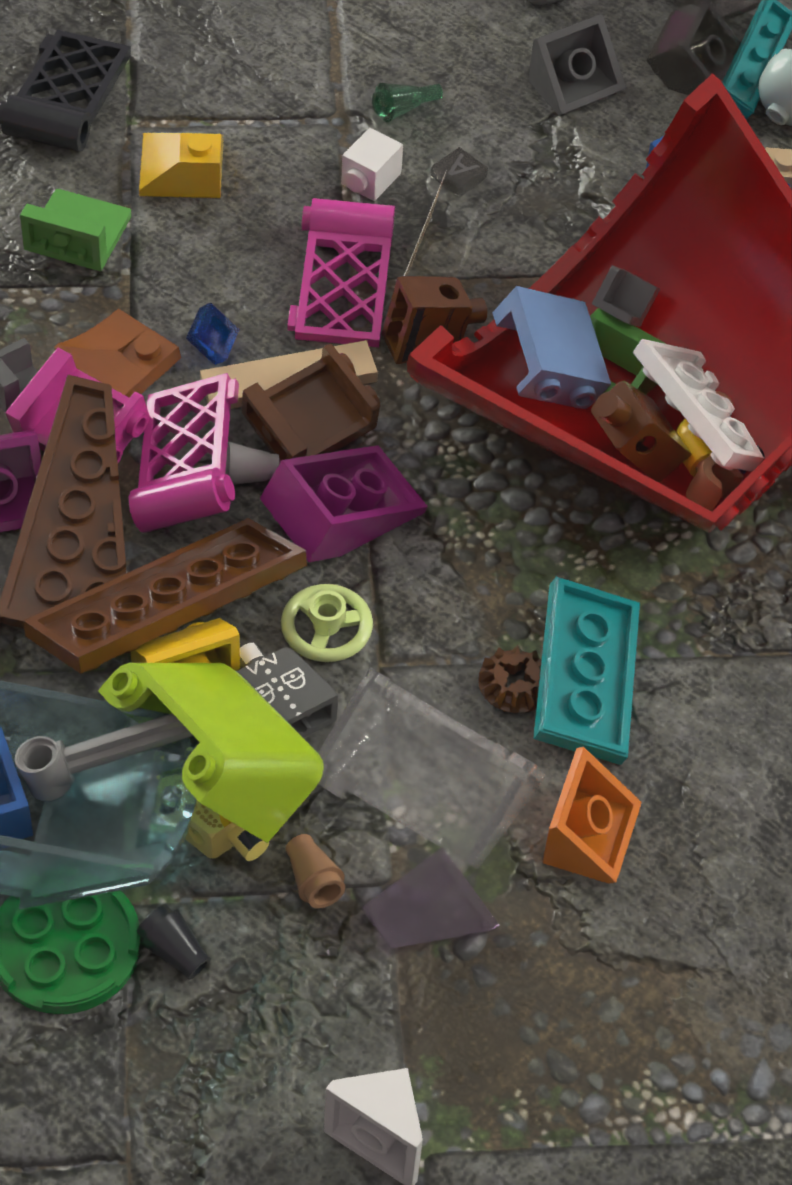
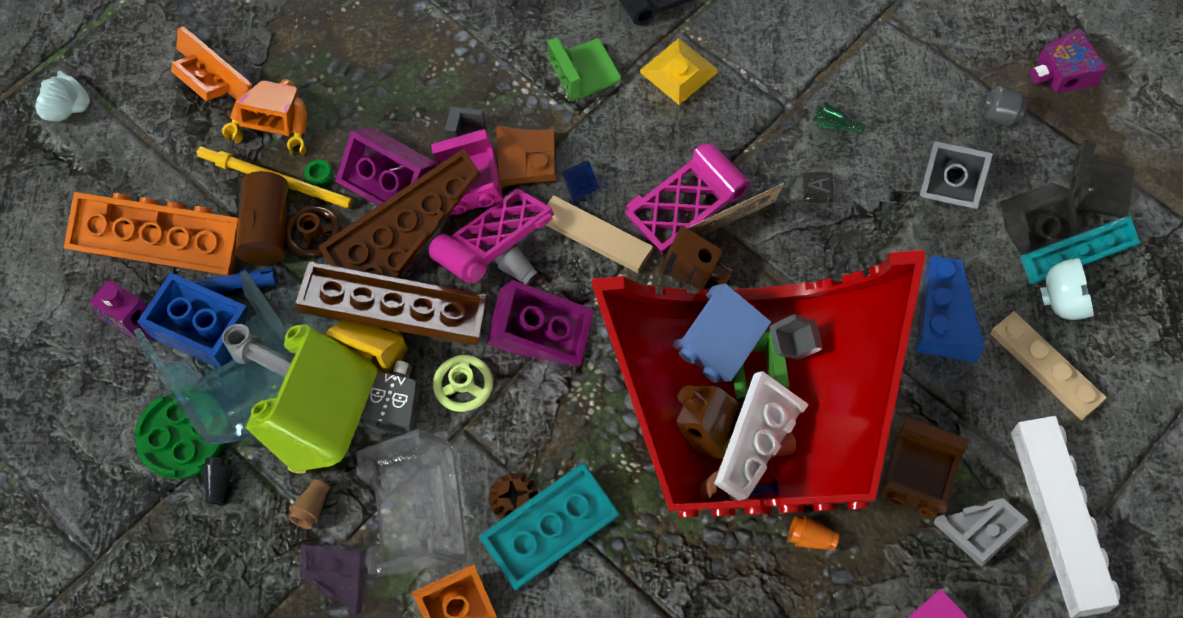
camera: 55 degrees right, 10 degrees up
(313, 408) = (571, 261): reddish brown panel -> none
(371, 164) = (770, 146): white brick -> none

